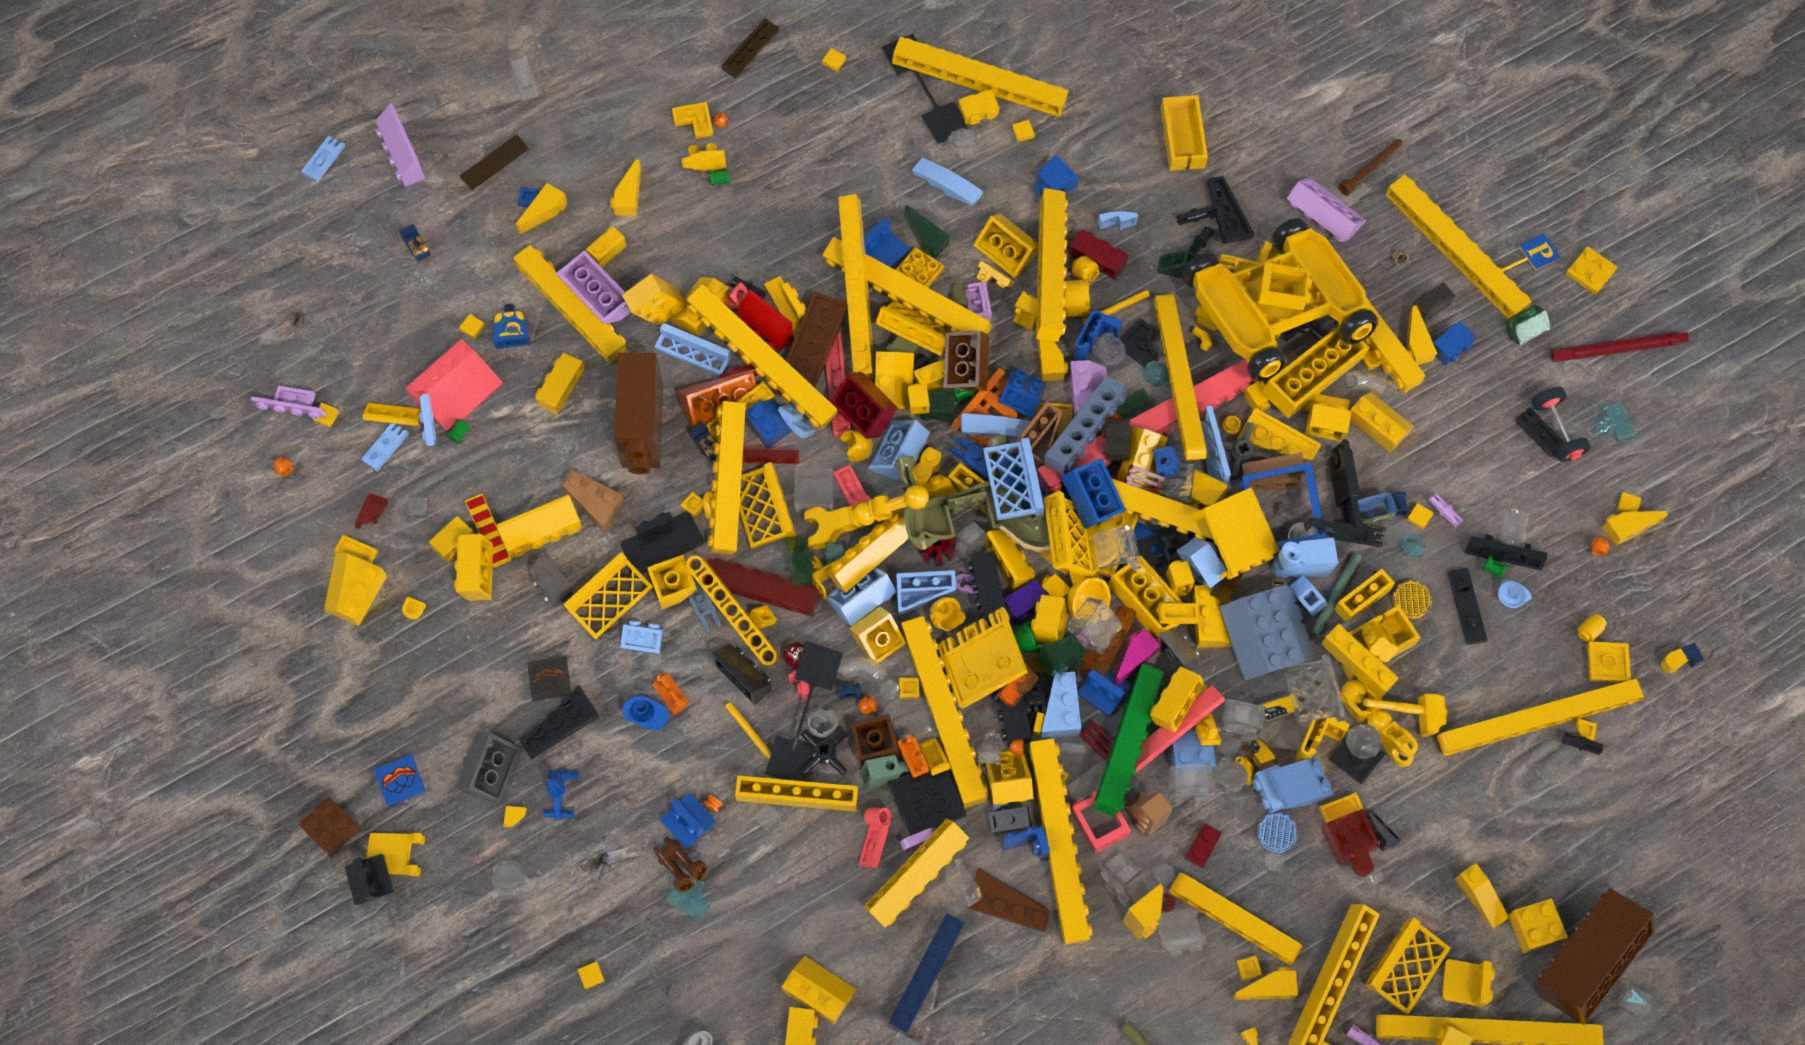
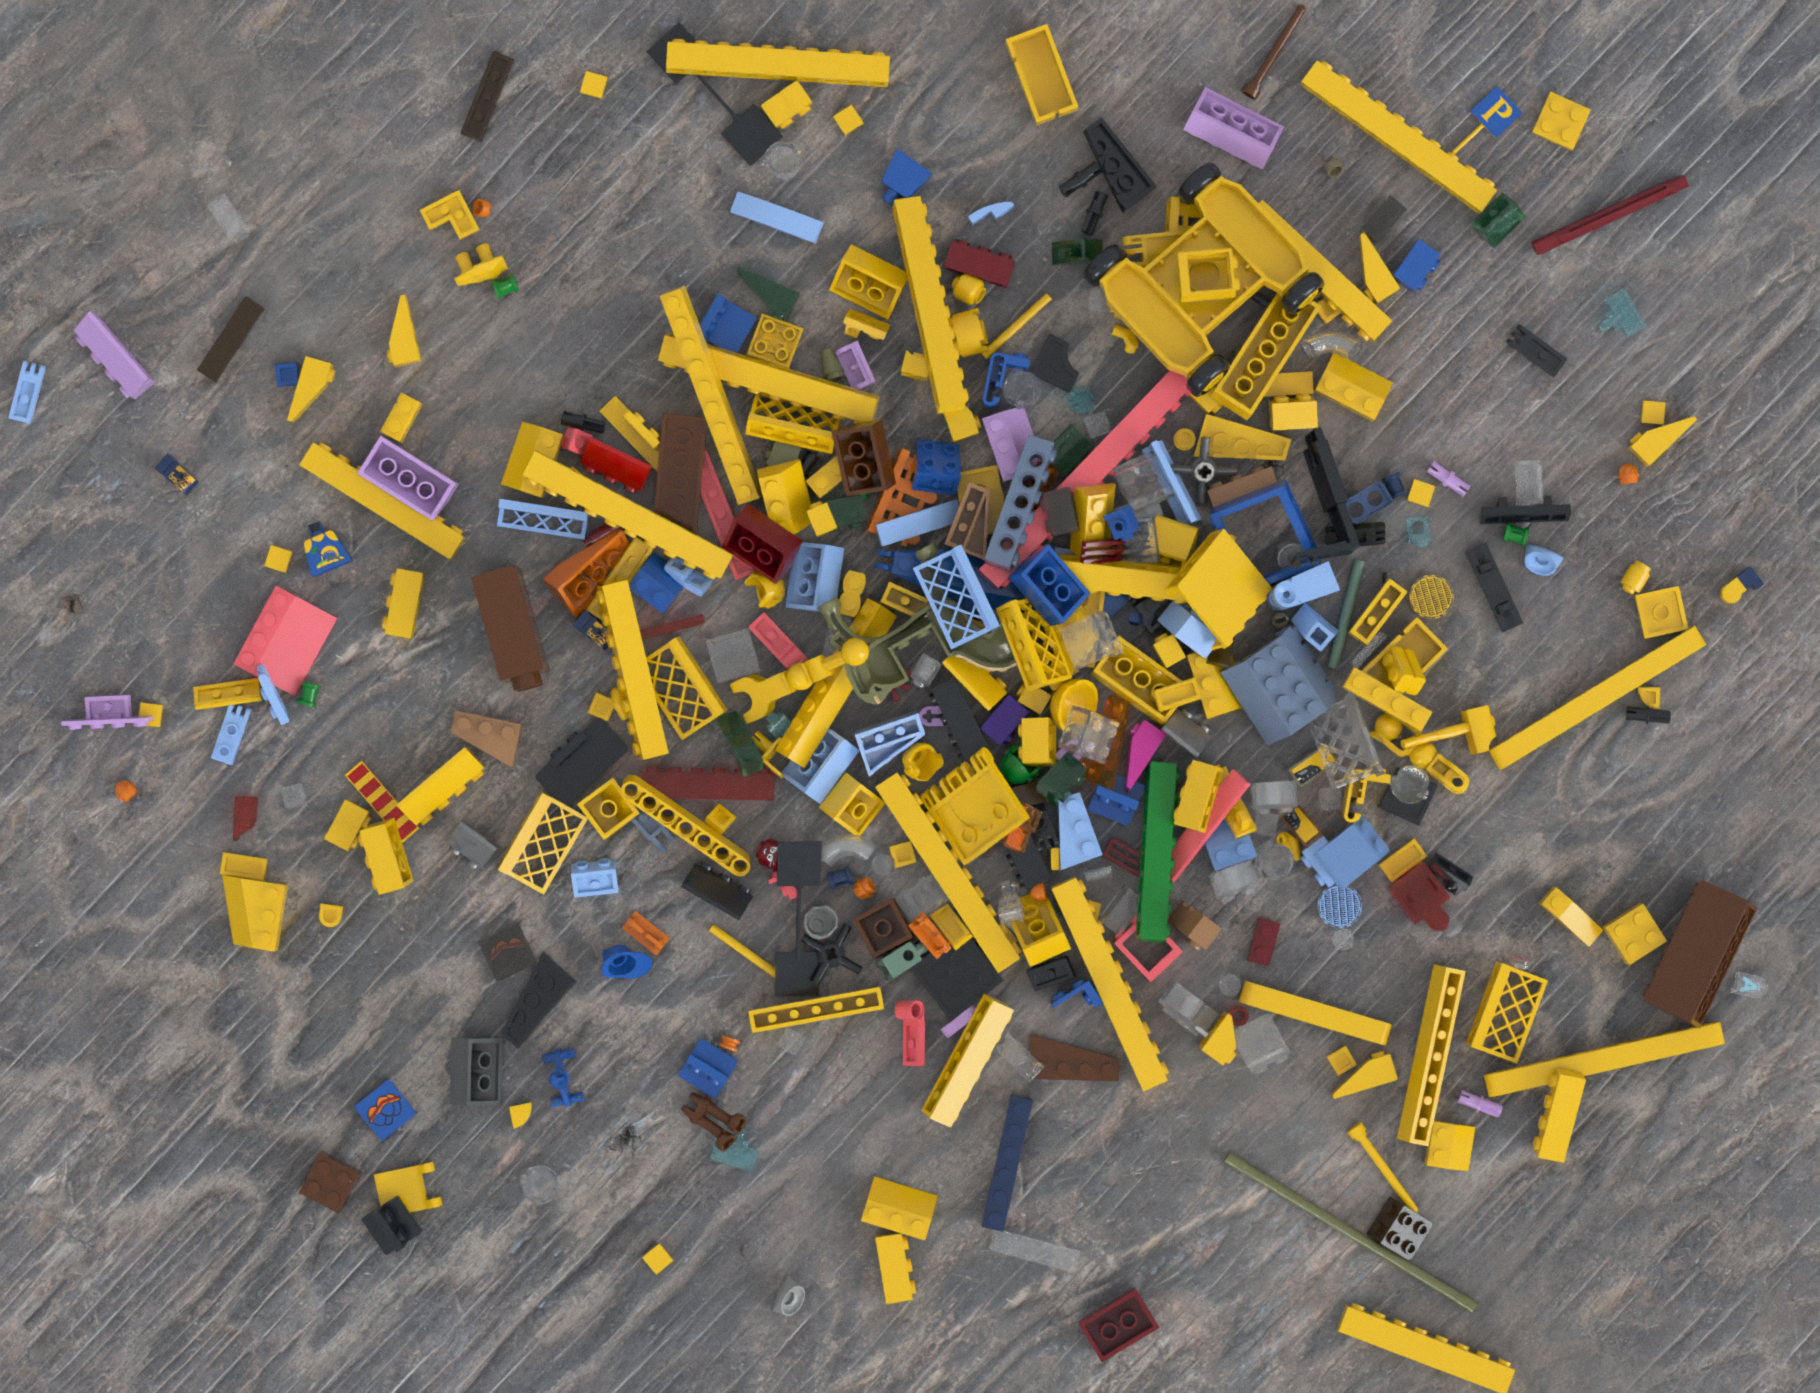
camera: 15 degrees left, 20 degrees up
(654, 299) = (484, 480): yellow brick -> none
(1180, 377) = (1111, 405): yellow beam -> none
(1468, 982) = (1572, 1014): yellow bracket -> none
(1549, 399) = (1576, 366): black axle -> none

